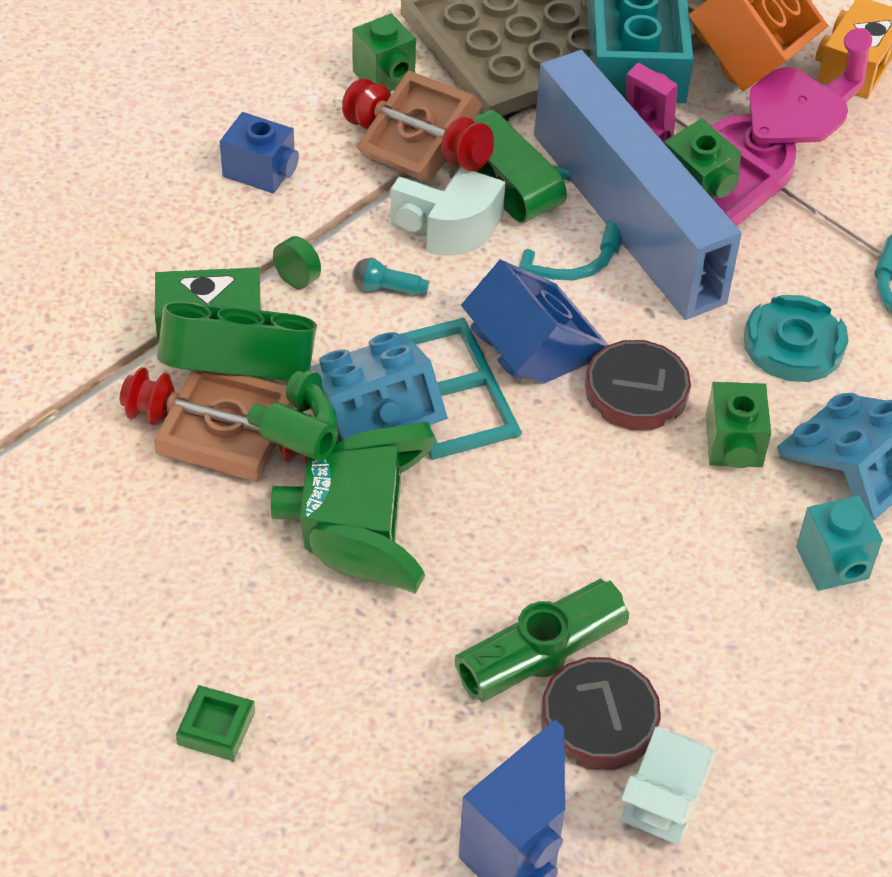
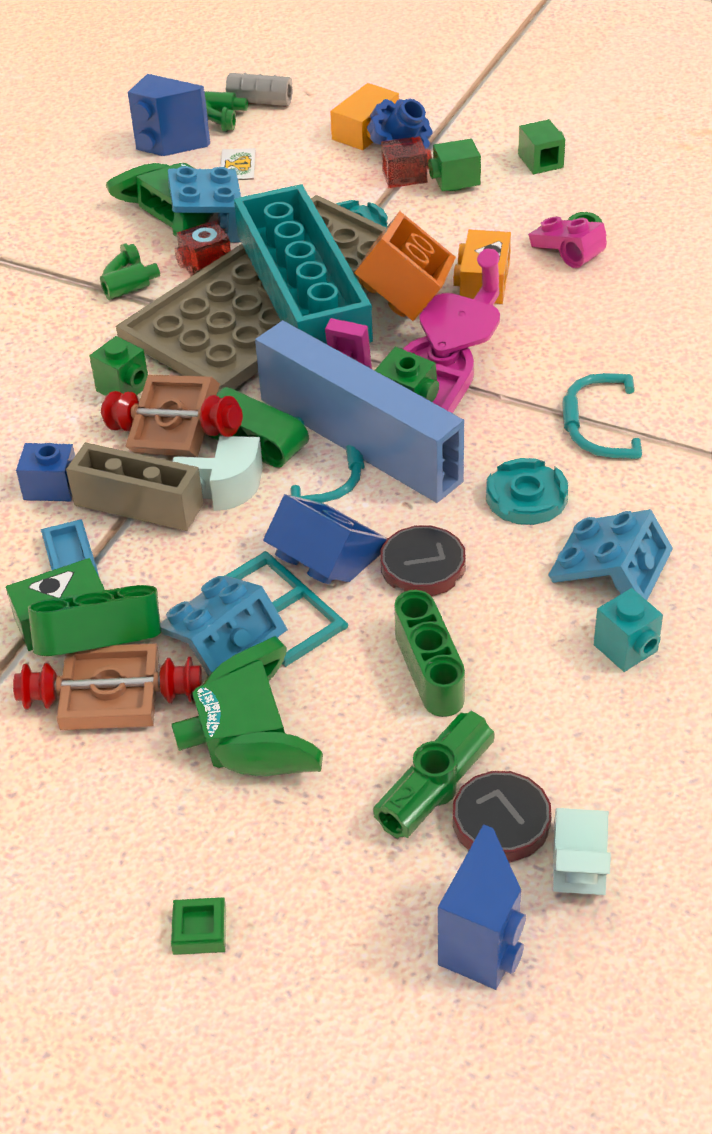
camera: 15 degrees left, 5 degrees down
(249, 244) = (67, 544): none -> dark azure tile
(294, 429) = (171, 671): green plant -> none
(297, 262) = (115, 547): green tile -> none
(345, 198) = (135, 486): none -> dark tan brick
(373, 275) = (179, 539): teal piece -> none
(596, 497) = (429, 653): none -> green beam
(738, 424) = (513, 566): green brick -> none

